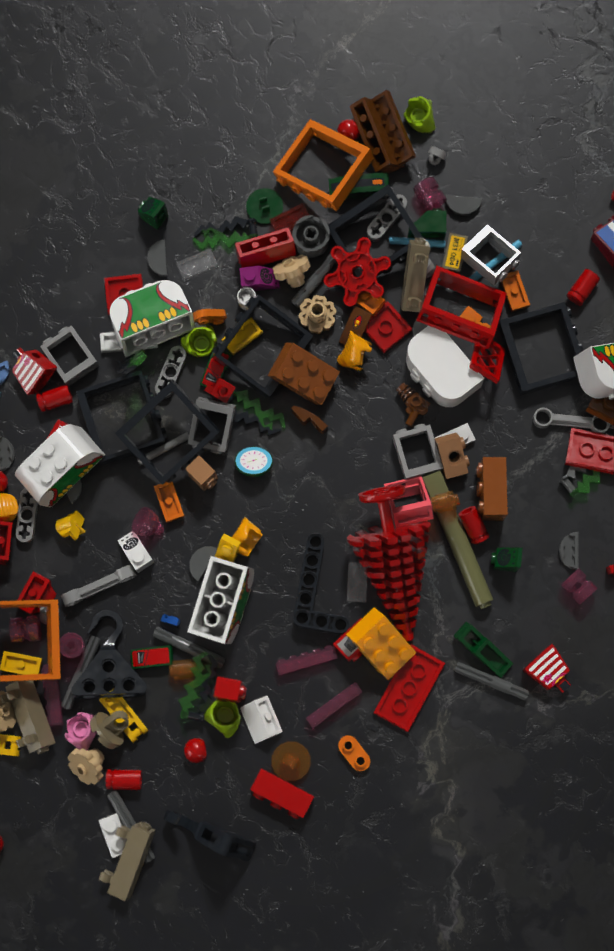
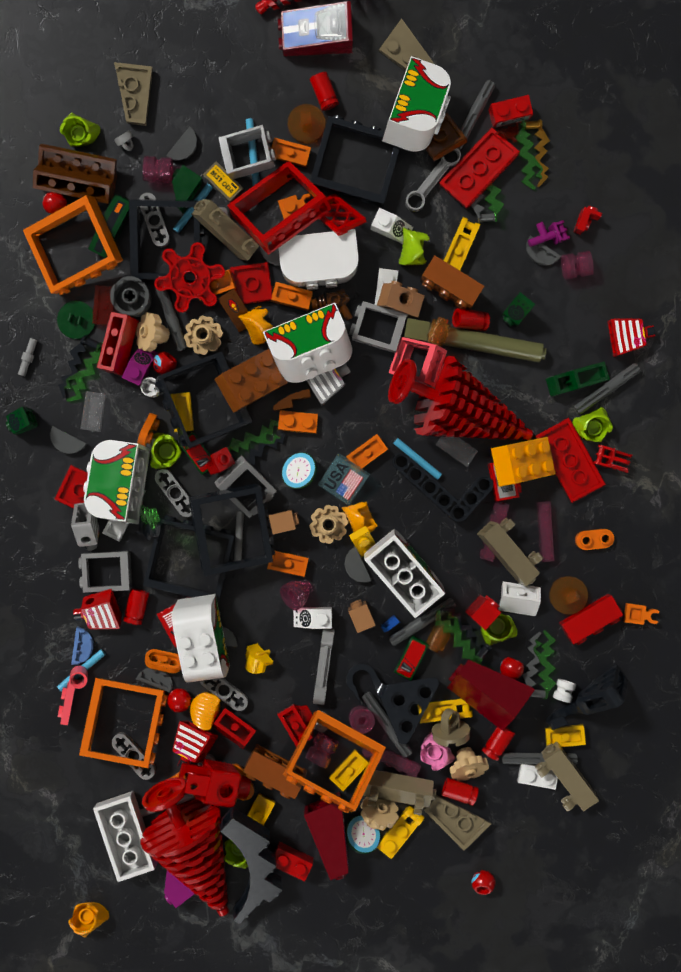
camera: 60 degrees left, 10 degrees up
(20, 446) = (164, 659): none -> orange plate
(31, 786) = (456, 821): none -> dark tan wing
(59, 773) = (460, 791): none -> red piece
(95, 315) = (85, 532): none -> light grey torso
(161, 588) = (361, 615): none -> medium nougat brick
(163, 742) = (490, 692): none -> dark red slope
(166, 837) = (566, 735): none -> yellow plate
(201, 813) = (564, 690): none -> white wheel
(203, 792) = (540, 657): none -> piece
(208, 186) = (27, 357): none -> light grey bar
(216, 508) = (318, 526): none -> tan plant
(270, 503) = (343, 479): none -> clear light blue tile
(274, 295) = (164, 363): none -> red piece
(294, 435) = (297, 422): none -> orange plate
(294, 682) = (509, 553): none -> dark tan brick
(305, 509) = (367, 452): none -> orange plate
(312, 832) = (637, 614): none -> orange plate
(327, 556) = (417, 458): none -> medium azure bar
(344, 437) = (328, 383): none -> light grey torso
(365, 402) = (310, 344): none -> brick
(396, 365) = (291, 296): none -> orange plate
(430, 710) = (610, 458): none -> red arm
(452, 689) = (593, 425): none -> lime hair
(484, 137) = (135, 91): none -> dark tan wing
(502, 439) = (413, 247): none -> lime hair
(508, 410) = (389, 225): none -> white slope
(531, 478) = (461, 243): none -> yellow plate
(547, 289) = (306, 123): none -> clear orange tile
(593, 550) = (553, 234): none -> magenta arm

